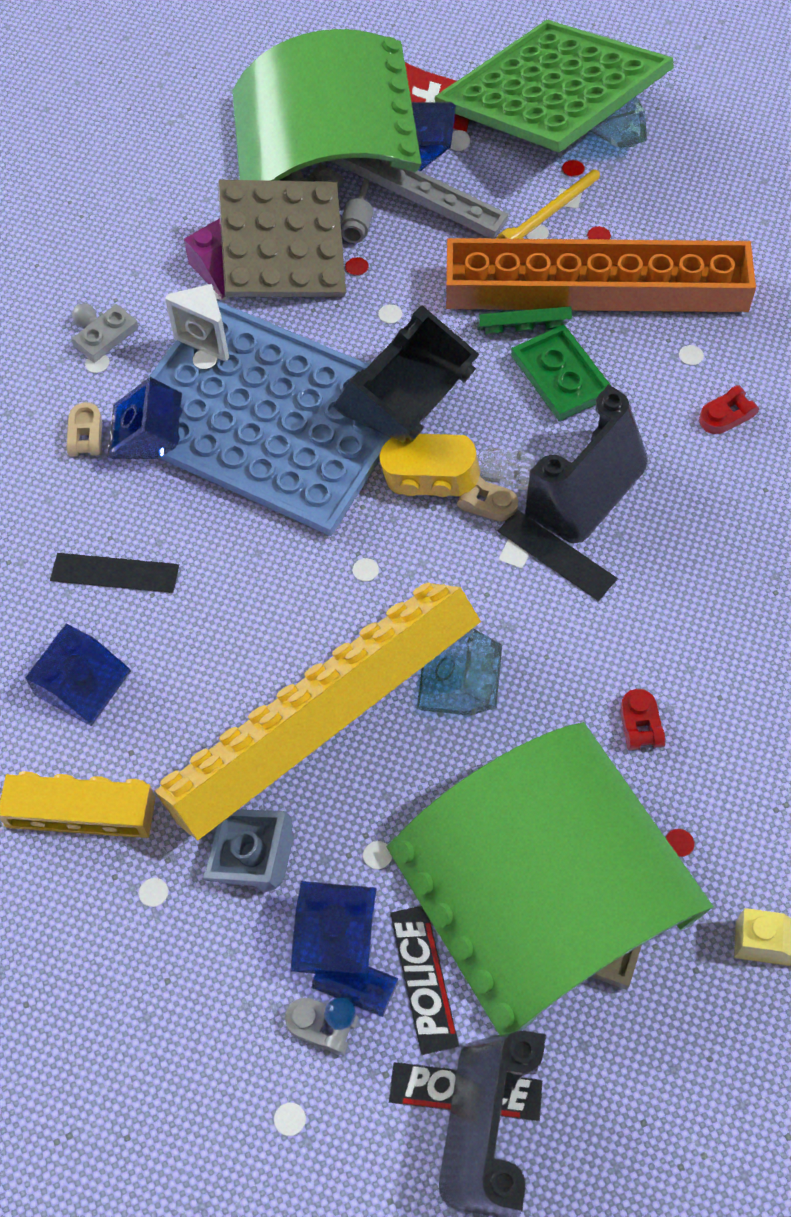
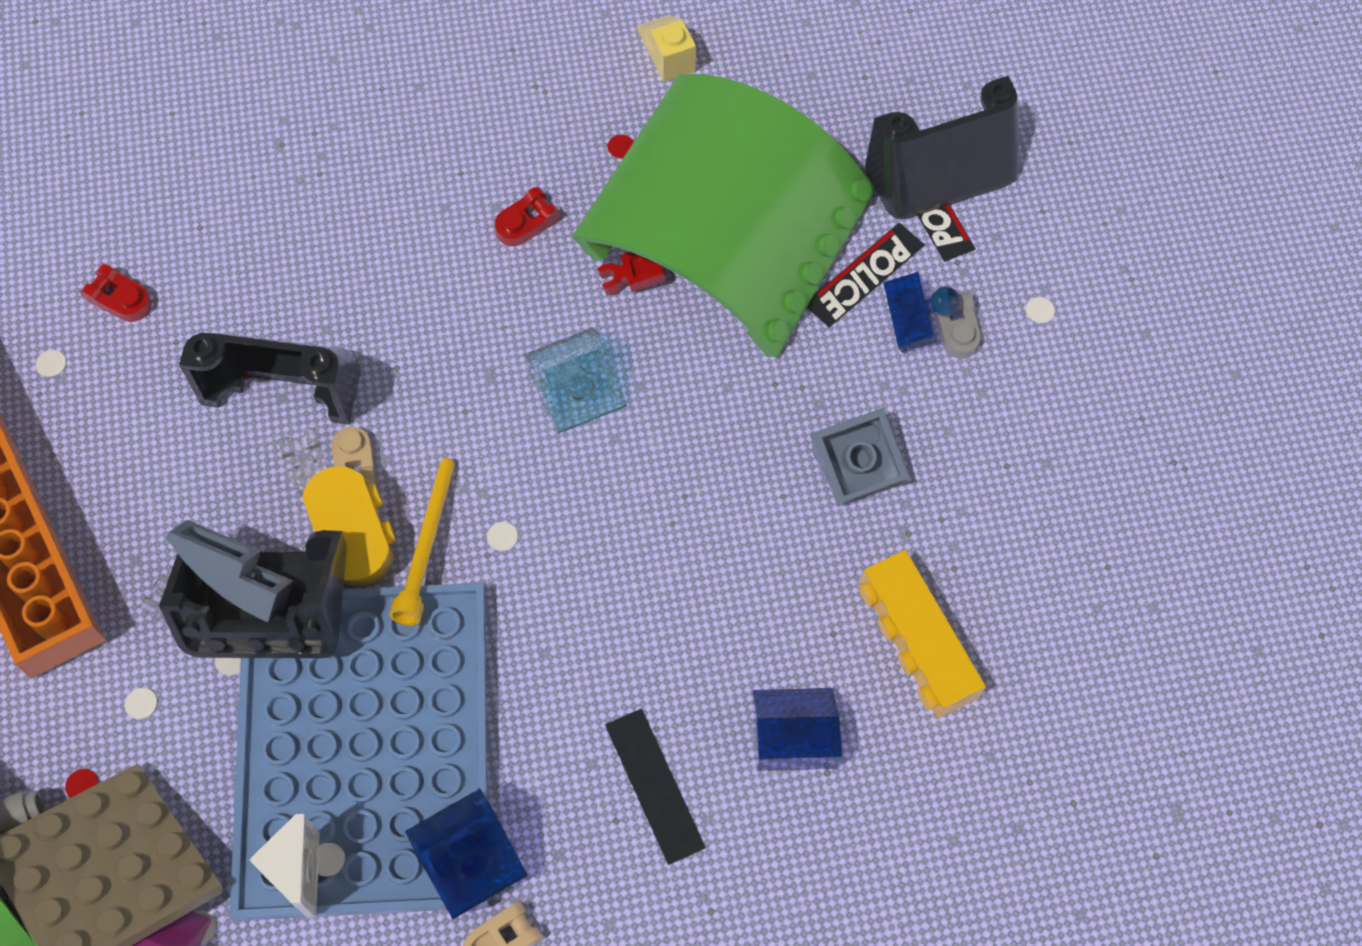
camera: 125 degrees left, 5 degrees up
(153, 892) = (944, 526): white sticker -> none
(315, 708) = (692, 464): yellow brick -> none
(334, 929) = (883, 343): clear blue slope -> none
(340, 469) = (408, 605): none -> yellow piece
(377, 855) = (786, 364): white sticker -> none
(429, 362) = (231, 569): none -> sand blue slope
(514, 554) = (402, 409): white sticker -> none
(523, 320) = (87, 541): green plate -> none
(558, 555) = (383, 371): black sticker -> none
(560, 371) = (145, 469): green plate -> none

